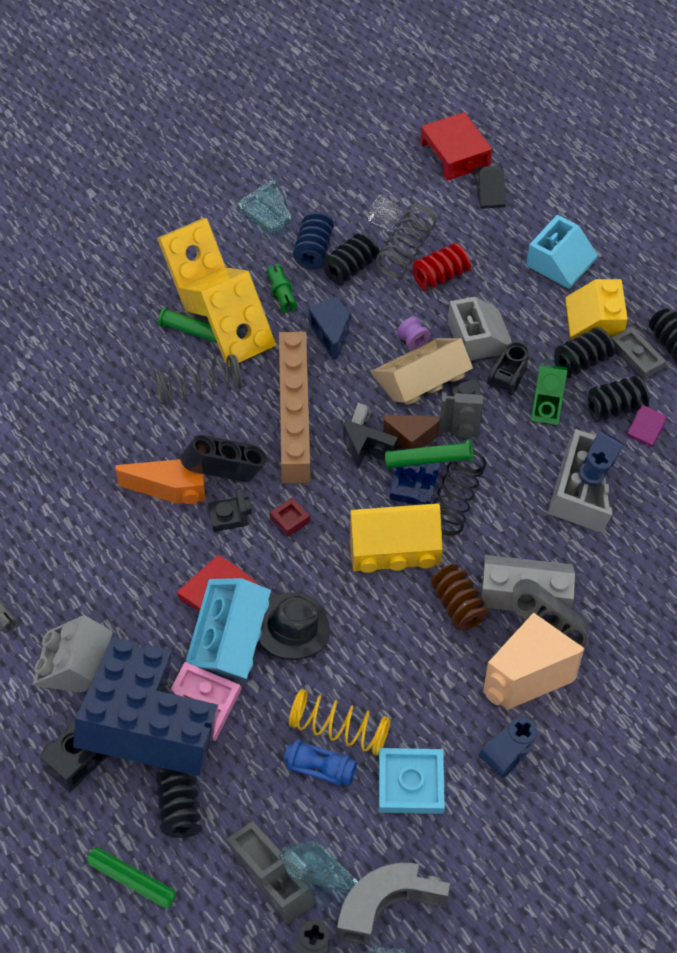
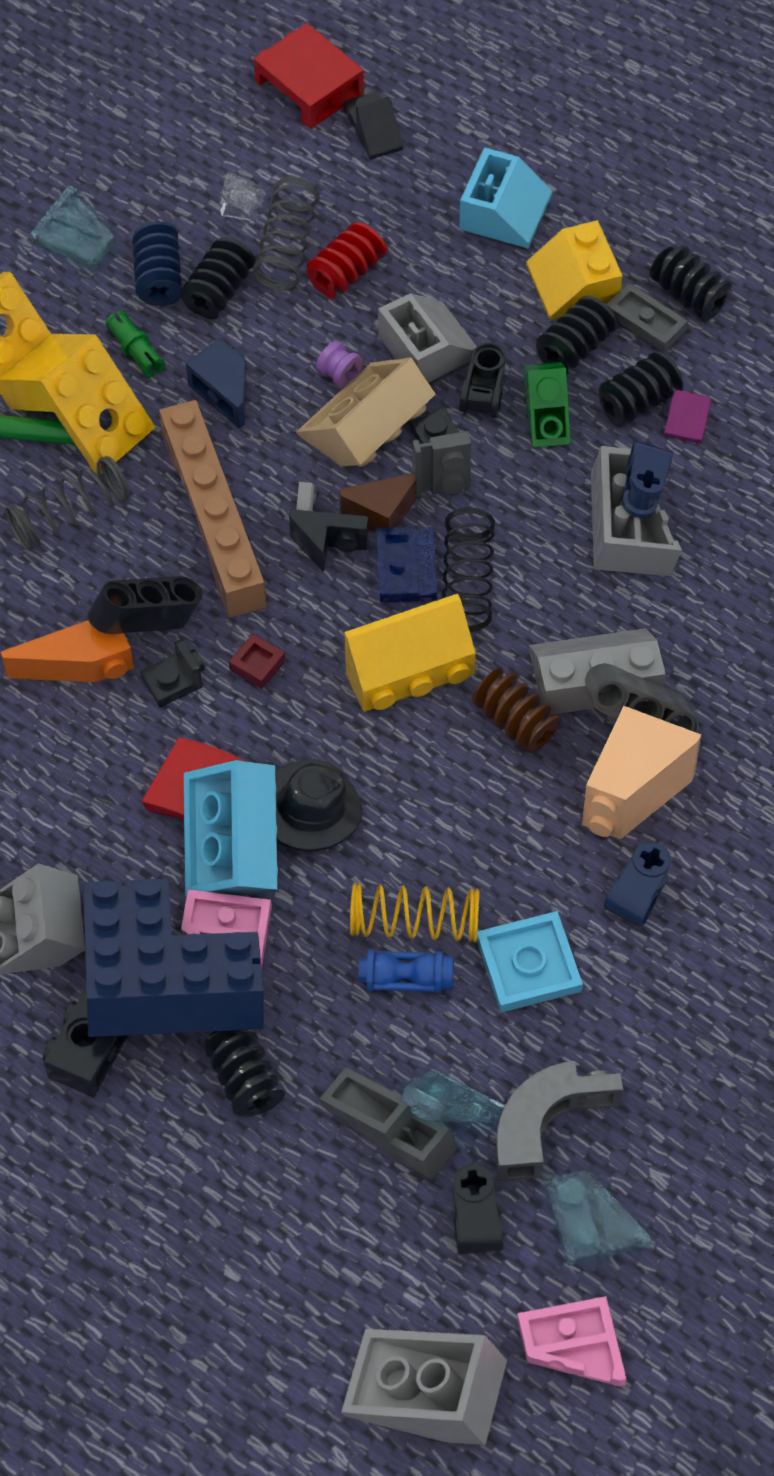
camera: 15 degrees left, 5 degrees up
(131, 877) = (214, 1180): green axle -> none
(430, 455) = (419, 530): green pin -> none

